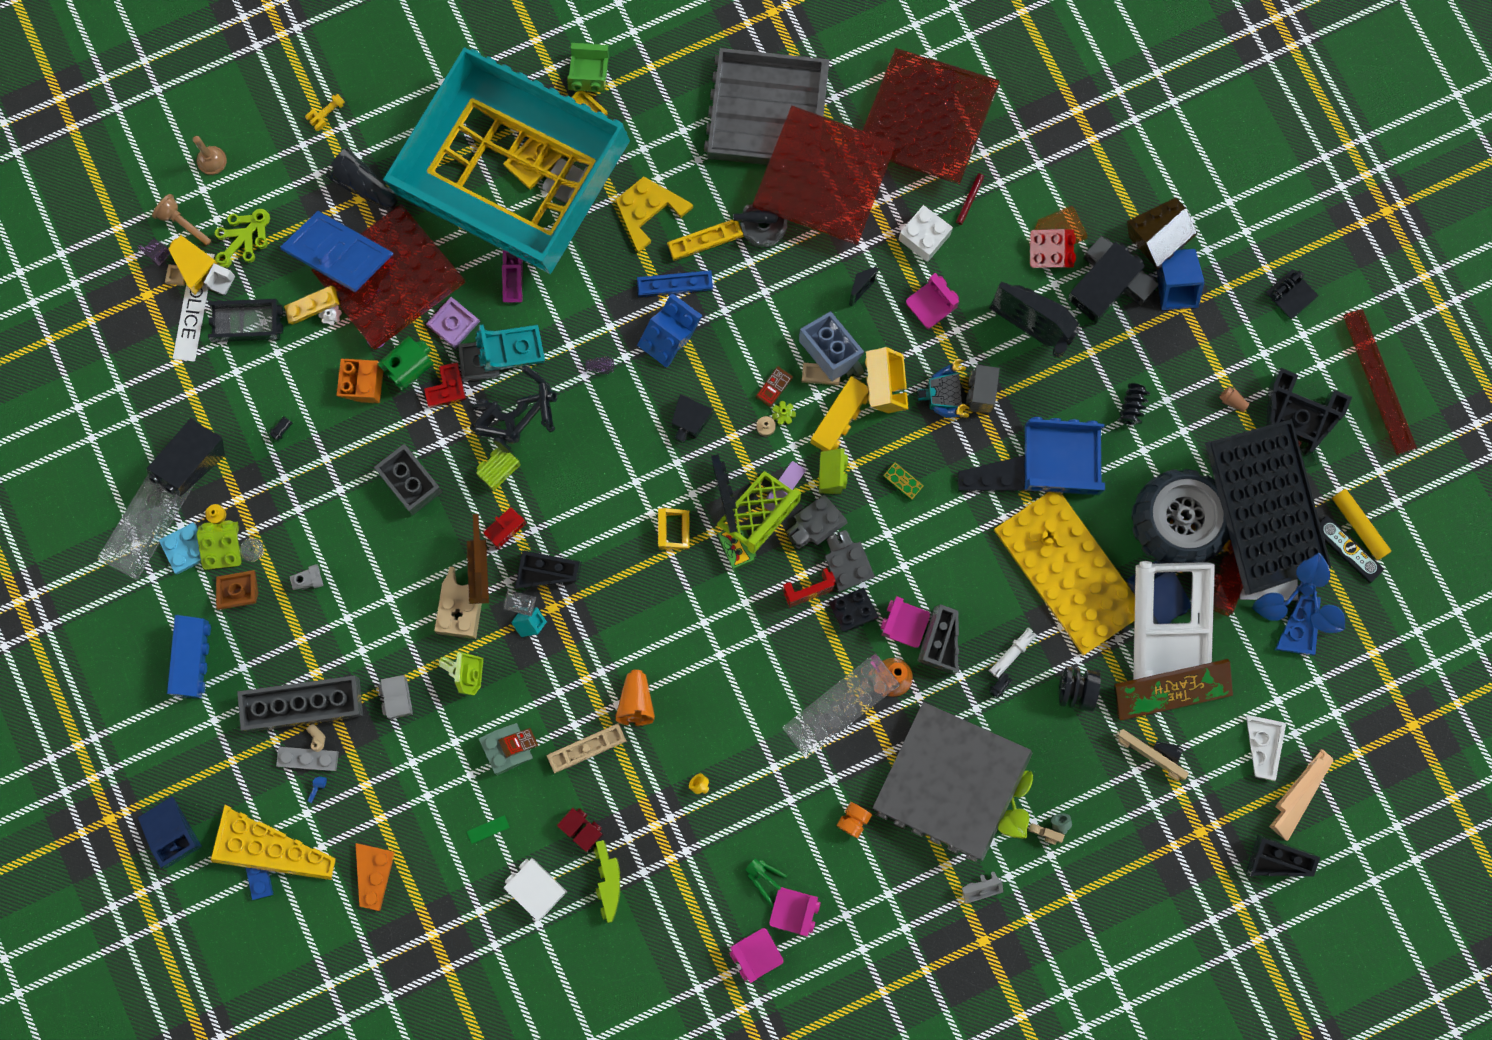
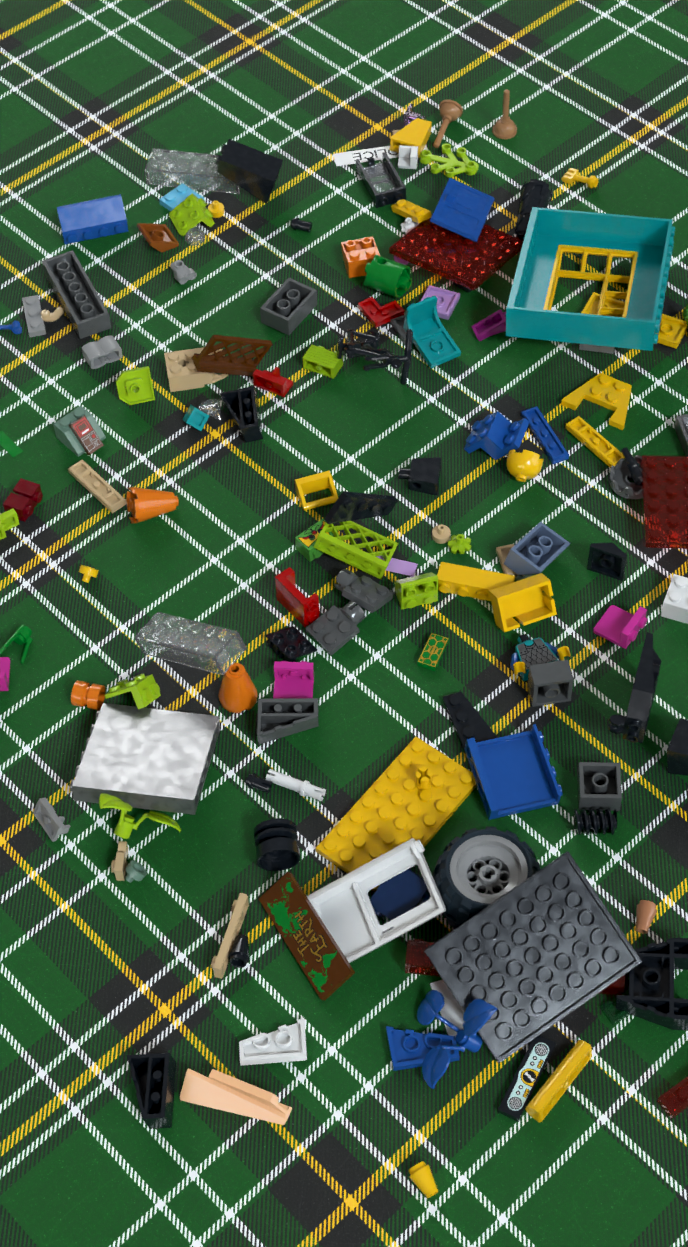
camera: 75 degrees right, 25 degrees down
(602, 365) = (445, 403): clear purple cone -> none
(715, 318) = (524, 465): none -> yellow cylinder
(774, 386) = (481, 530): reddish brown tile -> none
(865, 774) = (142, 688): none -> lime bracket
(1102, 388) = (599, 786): none -> dark grey brick
(1413, 662) = (423, 1179): none -> yellow cone

